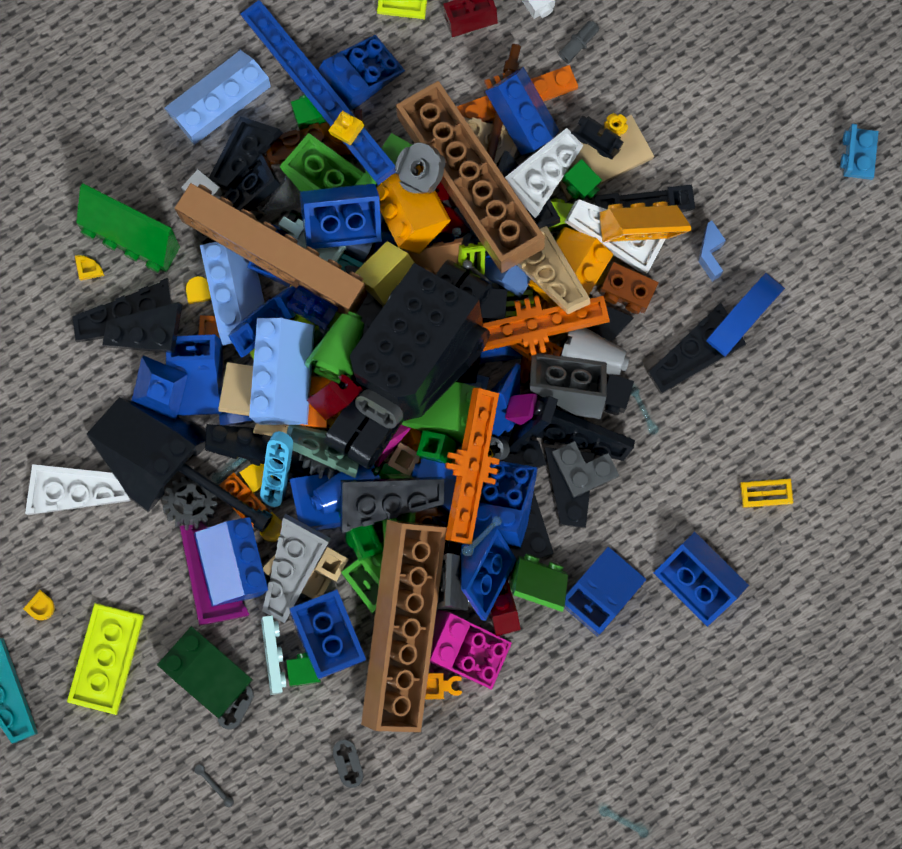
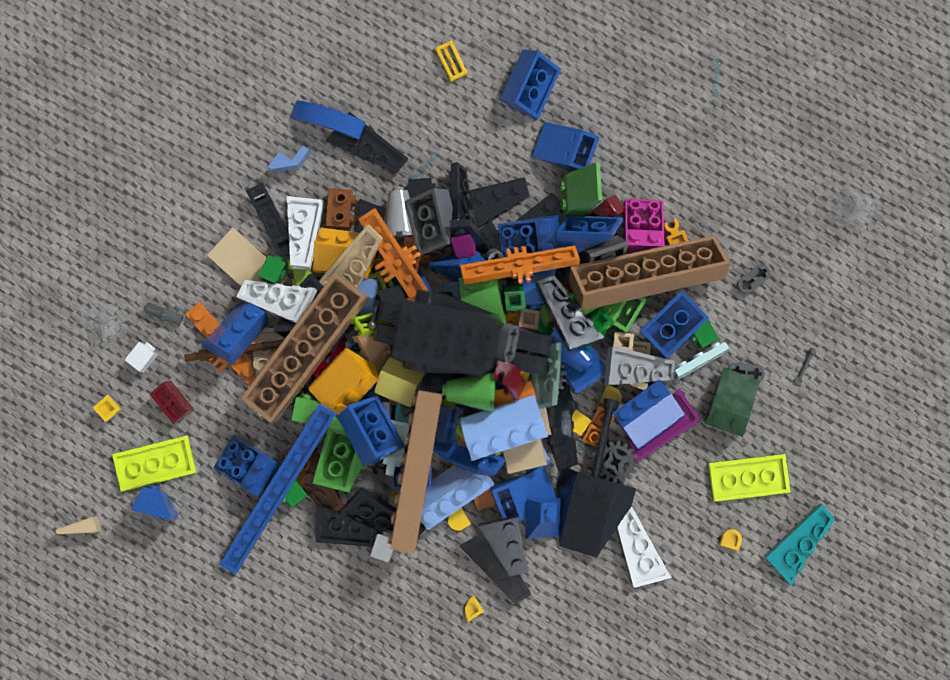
camera: 105 degrees left, 5 degrees up
(126, 229) = (437, 589): green slope -> none
(218, 96) = (305, 566): light blue slope -> none
(276, 469) = (572, 405): medium azure beam -> none
(346, 128) = (301, 453): yellow tile -> none
(432, 172) = (307, 376): dark grey plate -> none
(468, 550) = (580, 245): clear light blue hinge -> none
(580, 475) = (490, 192): dark grey plate -> none
(588, 133) = (238, 263): black hinge -> none
(620, 119) = (220, 257): yellow plate -> none
(642, 222) = (290, 213): light orange slope -> none
(860, 153) = (175, 81): dark azure bracket -> none

